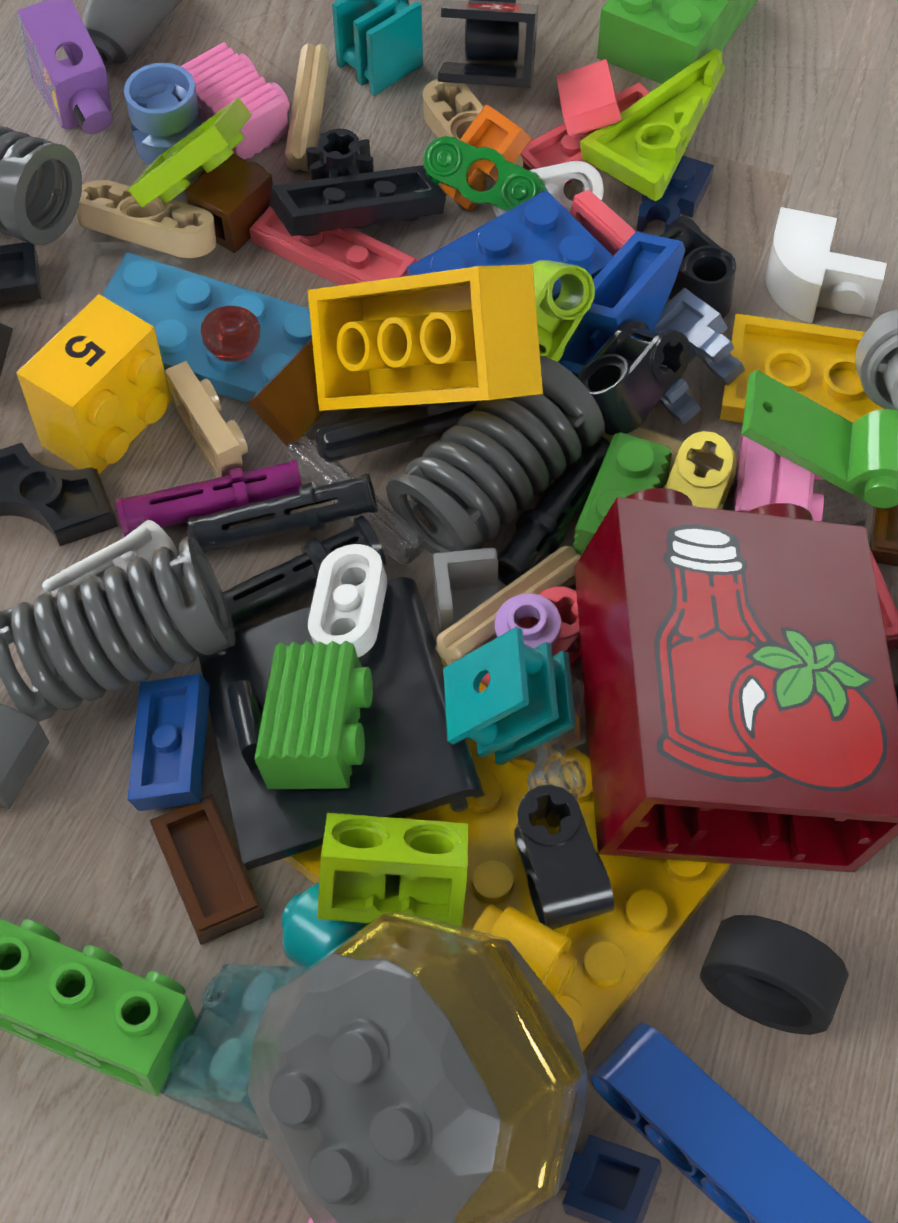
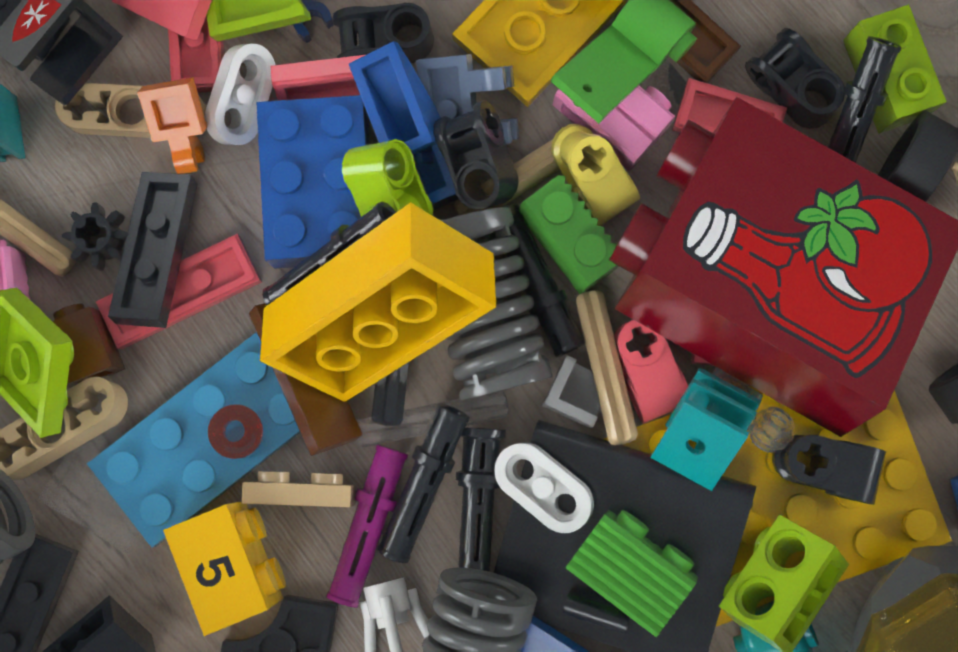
camera: 60 degrees left, 25 degrees up
(450, 159) = (170, 154): green piece -> none
(534, 606) = (630, 375): lavender plate -> none
(538, 944) = (880, 532): yellow brick -> none

